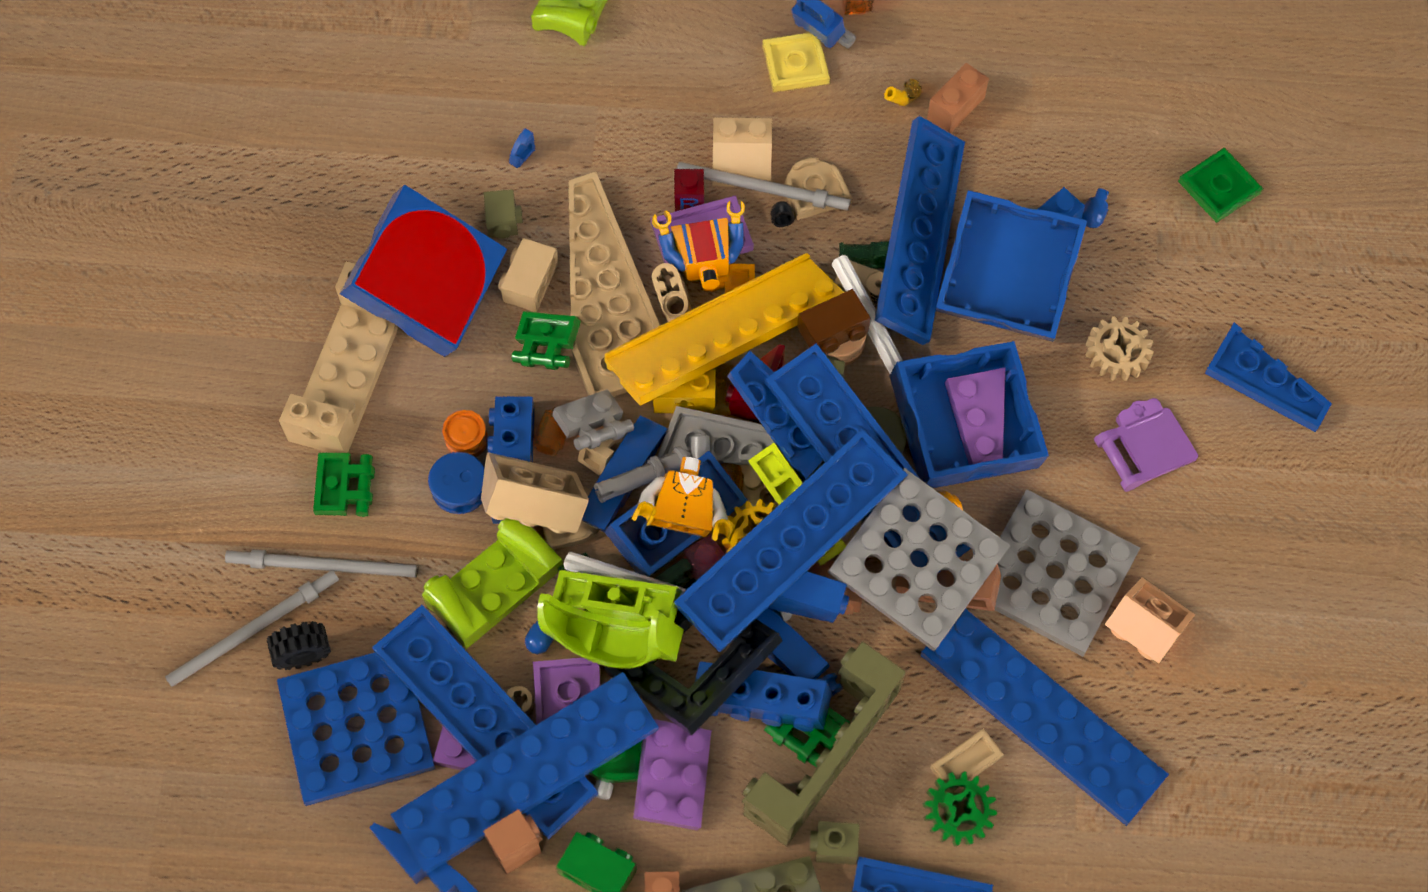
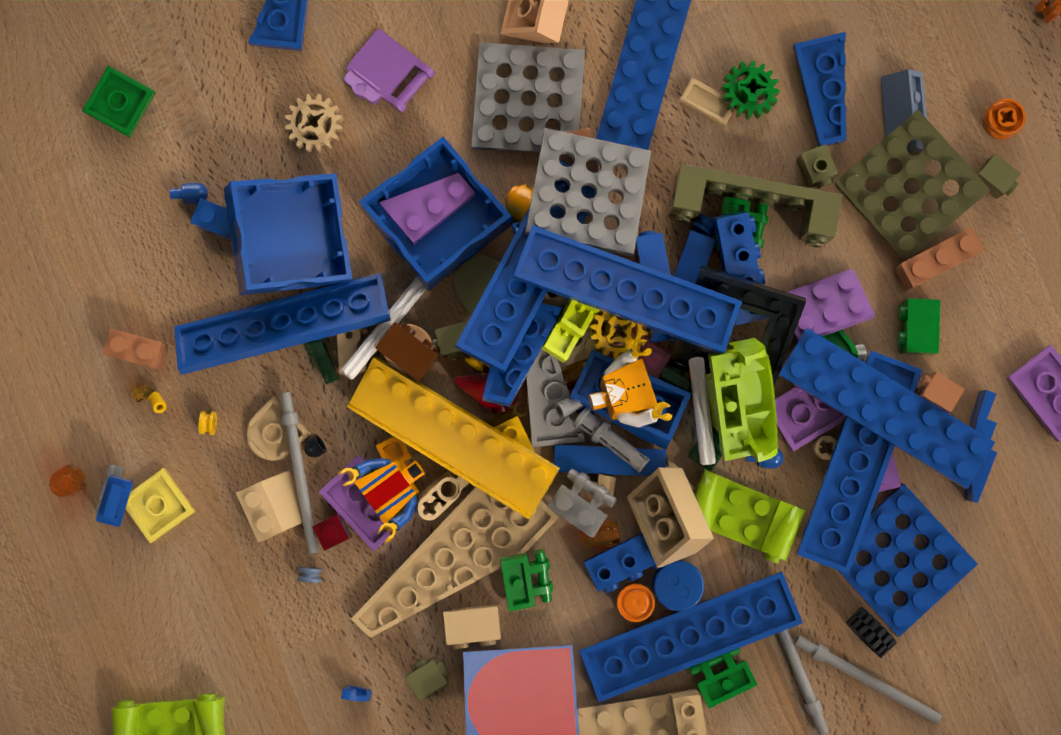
camera: 115 degrees left, 20 degrees up
(398, 472) = (690, 636): none -> blue plate
(658, 156) = (309, 574): none -> sand blue bush
(854, 131) = (207, 422): none -> yellow bush

